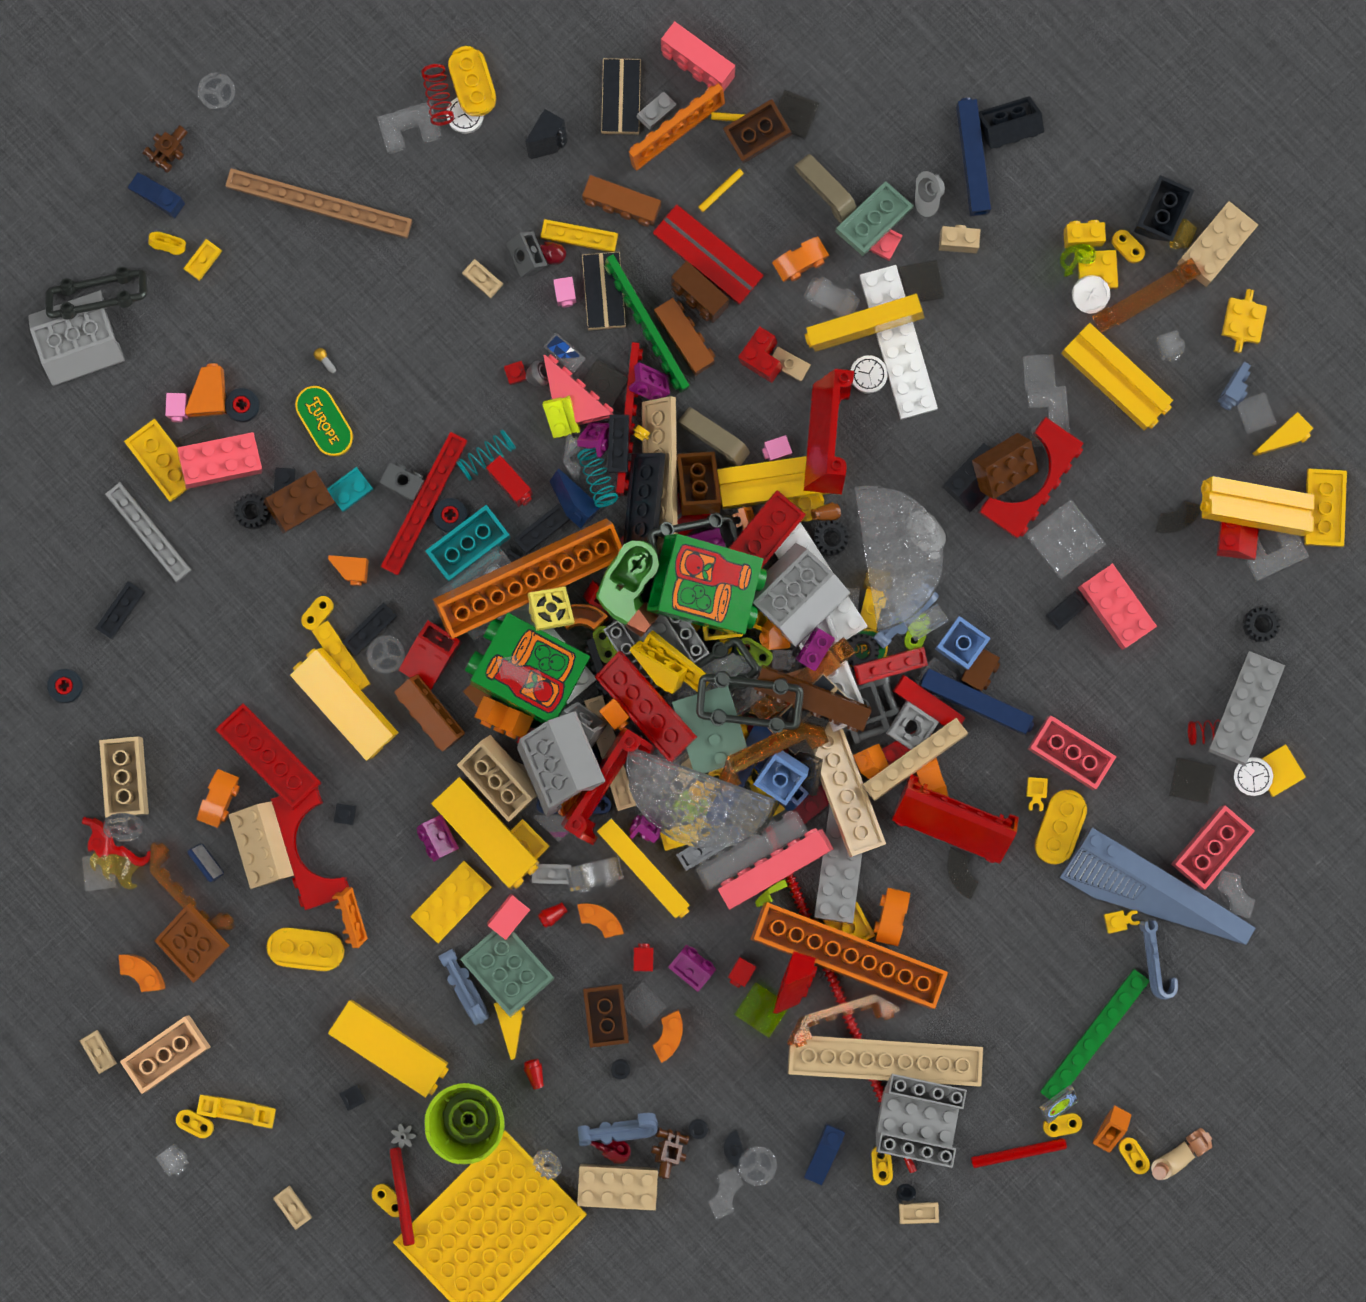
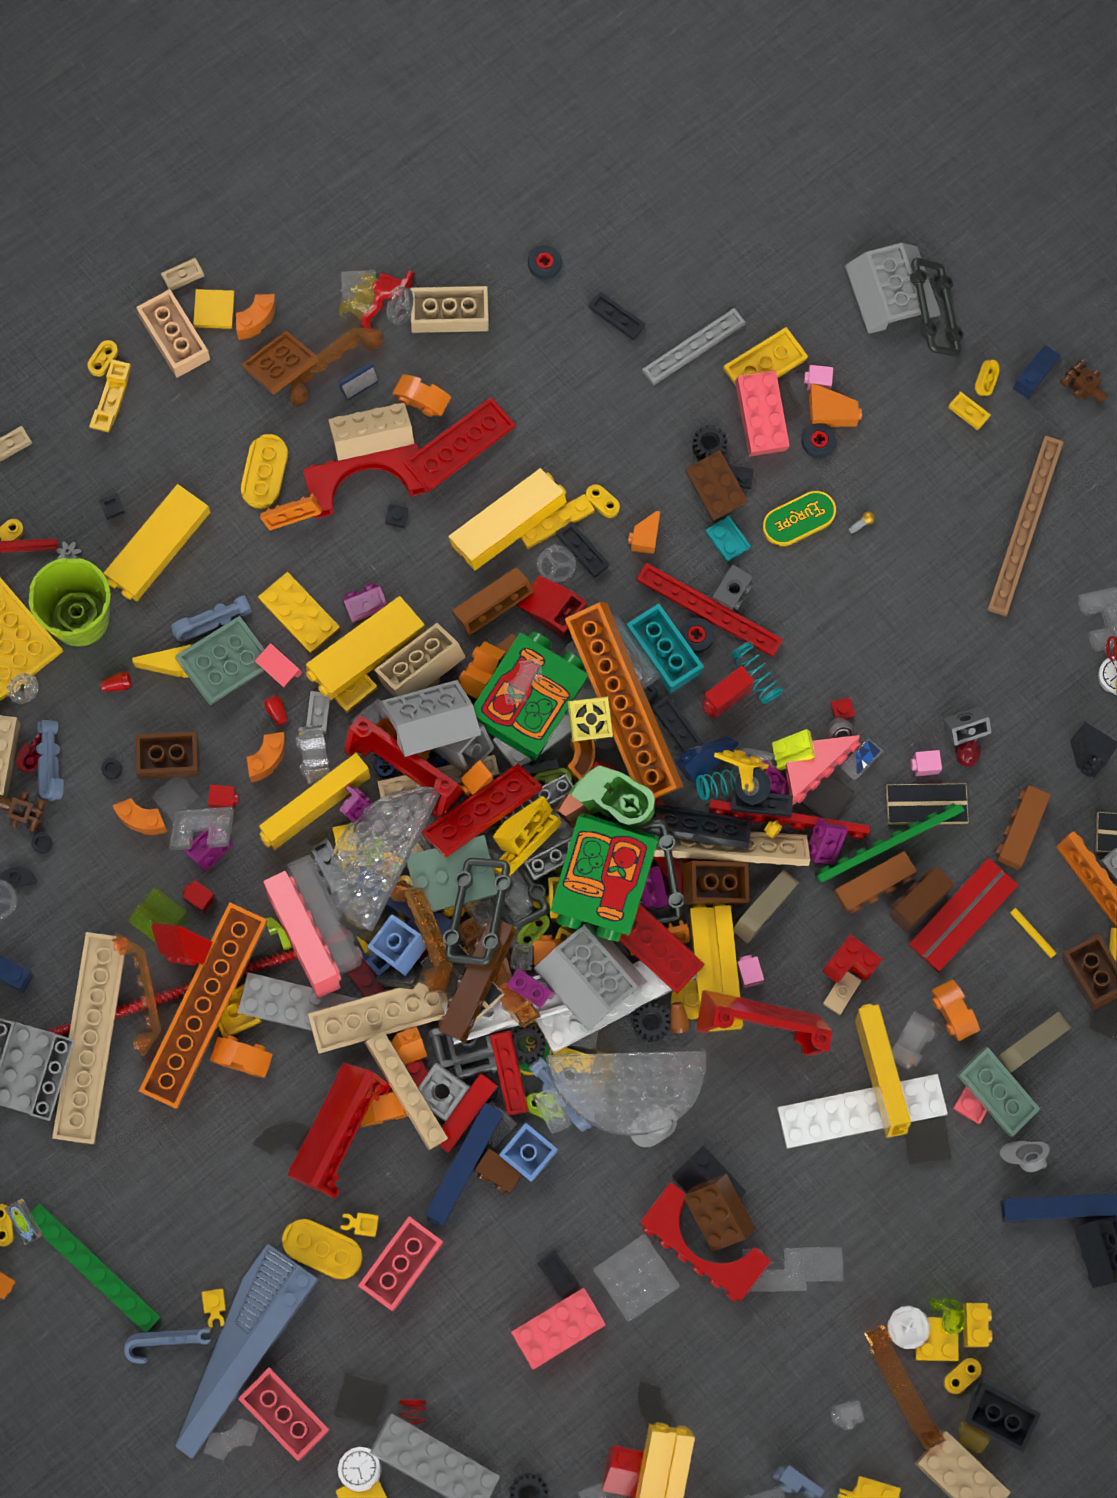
camera: 90 degrees right, 10 degrees down
(133, 1016) = (214, 309): none -> yellow tile
(173, 1160) = (69, 336): clear brick -> none
(482, 278) = (943, 681): tan plate -> none
(579, 236) = (986, 783): yellow tile -> none
(602, 451) = (752, 782): none -> plate
(668, 960) = (215, 820): none -> clear plate
(869, 374) = (827, 1076): white tile -> none
(959, 239) = (974, 1184): tan brick -> none
(1117, 377) = (814, 1350): yellow brick -> none

